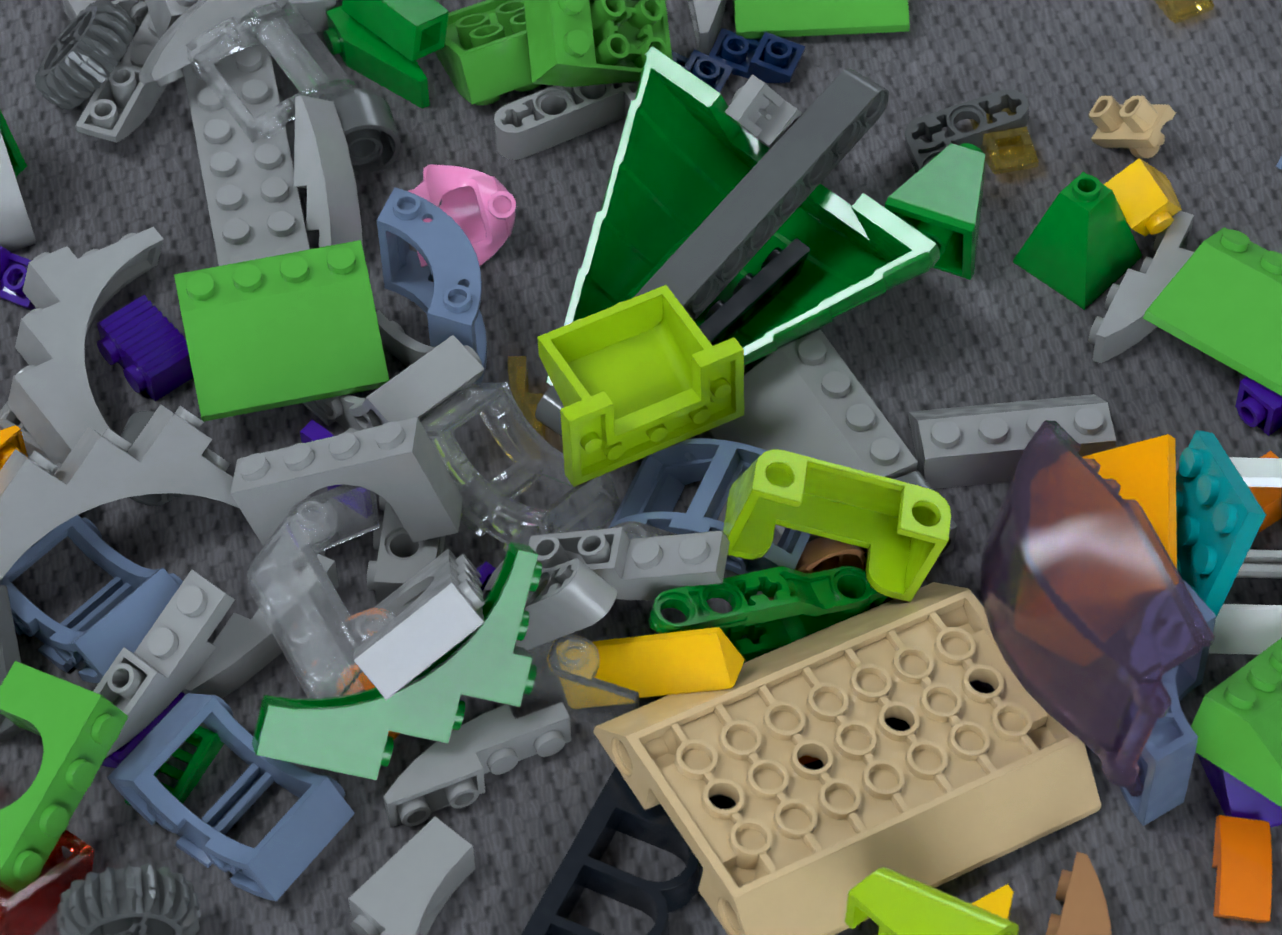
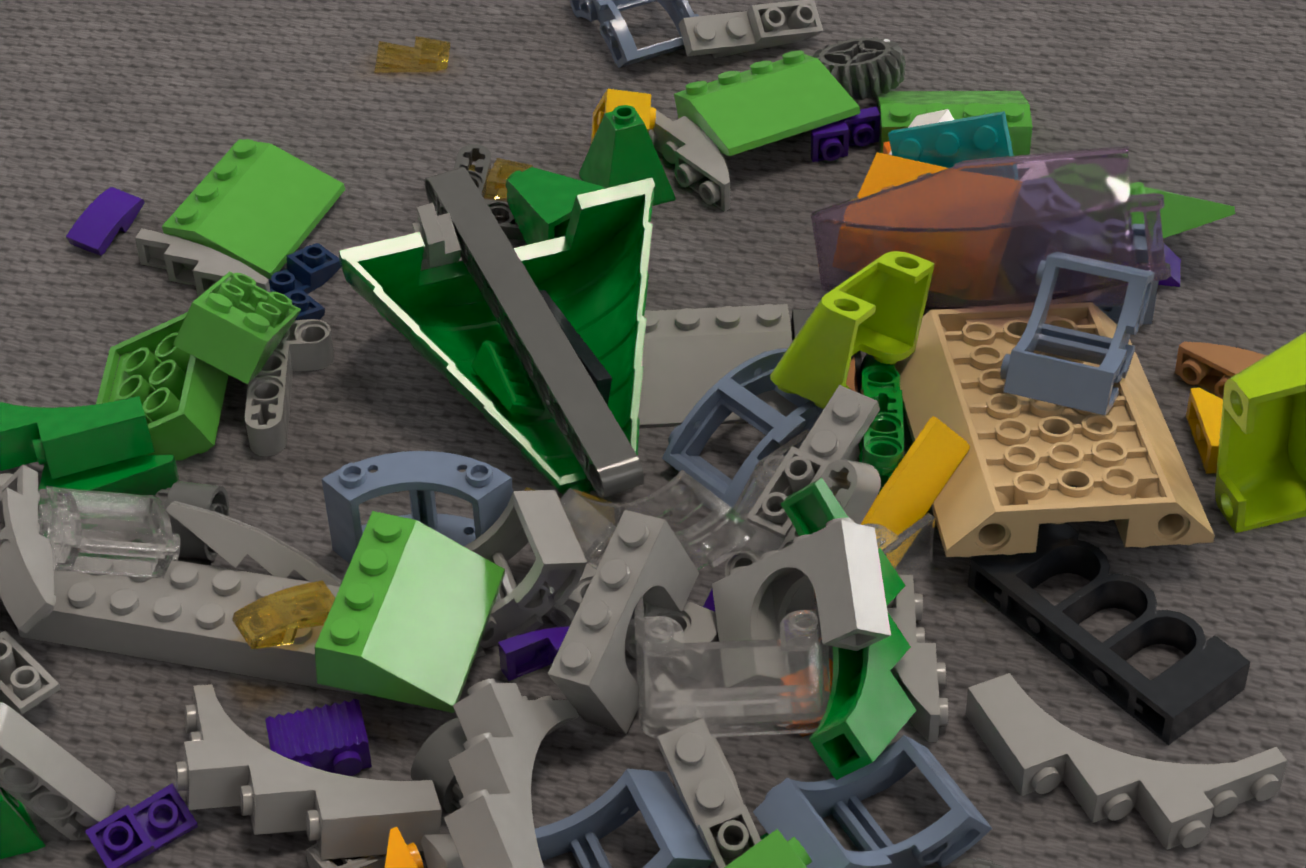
camera: 65 degrees left, 10 degrees down
(232, 239) = (278, 616): none -> clear yellow slope
(474, 202) = (326, 459): bright pink piece -> none
(638, 382) = (636, 394): lime windscreen -> none
(957, 769) = (1067, 381): none -> sand blue window
(988, 440) = (776, 258): light grey slope -> none
(1130, 125) = (538, 108): tan hips -> none
(1243, 869) = (1201, 278): orange slope -> none

